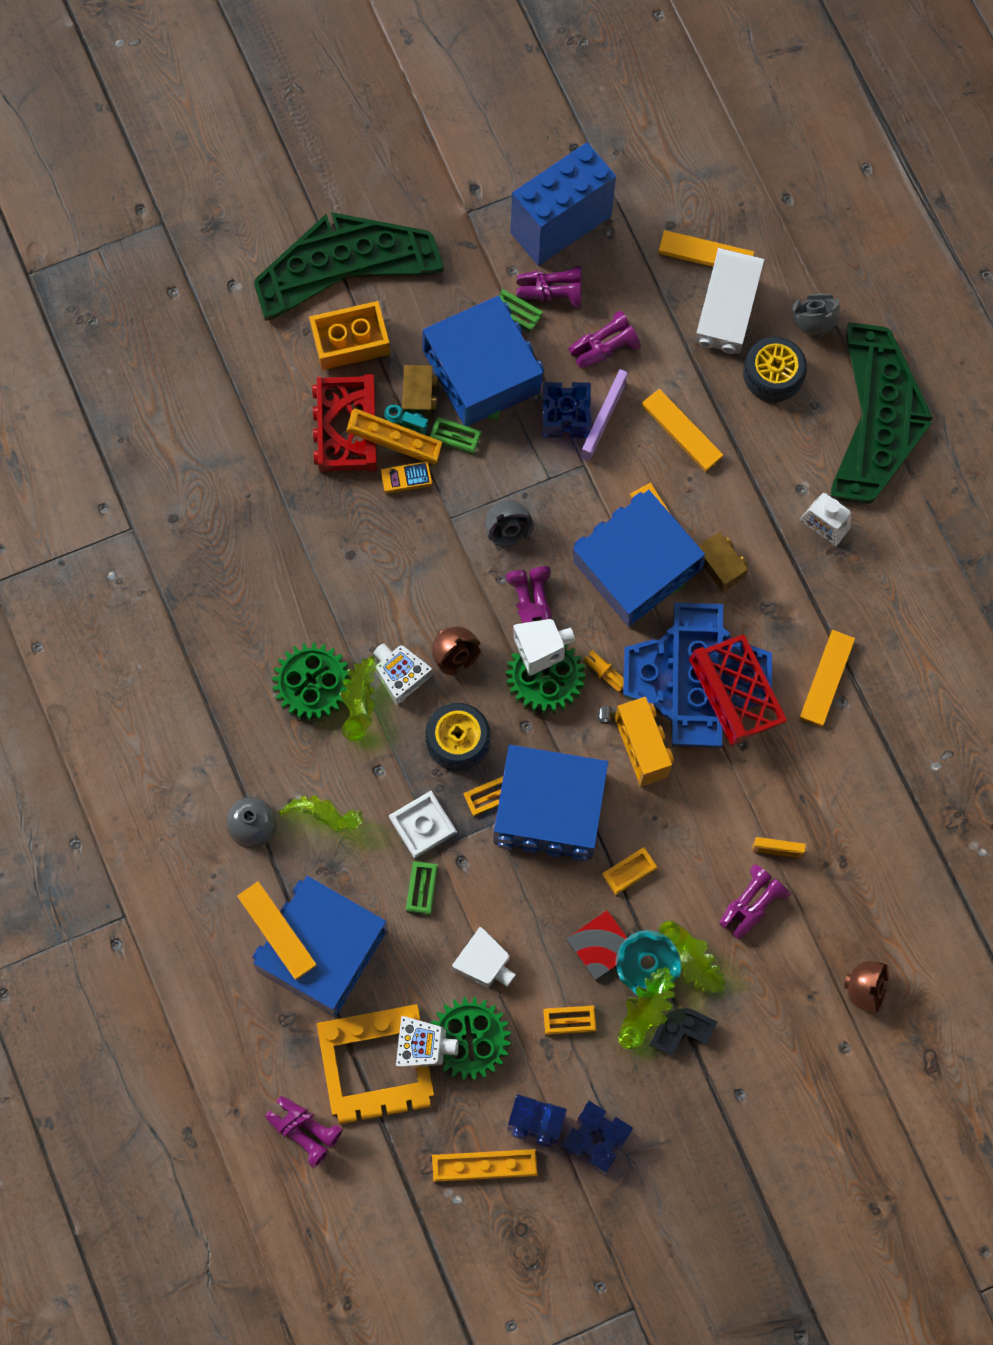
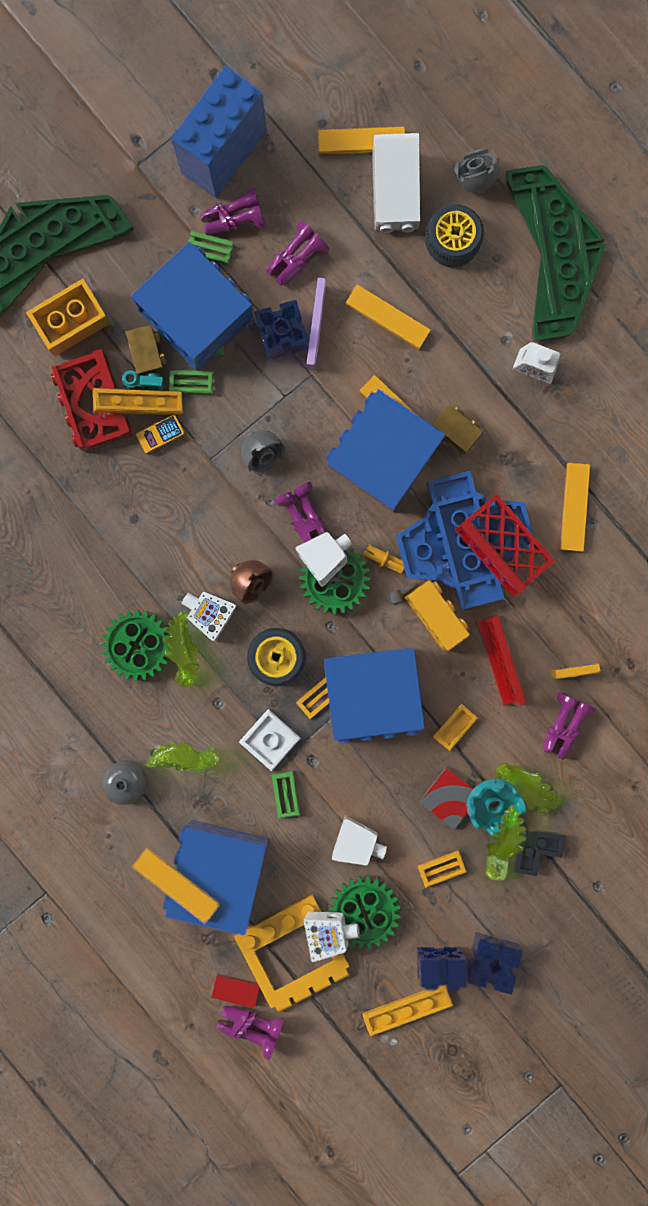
camera: 15 degrees left, 15 degrees up
(298, 1085) = (235, 991): none -> red tile
(700, 811) = (500, 661): none -> red fence

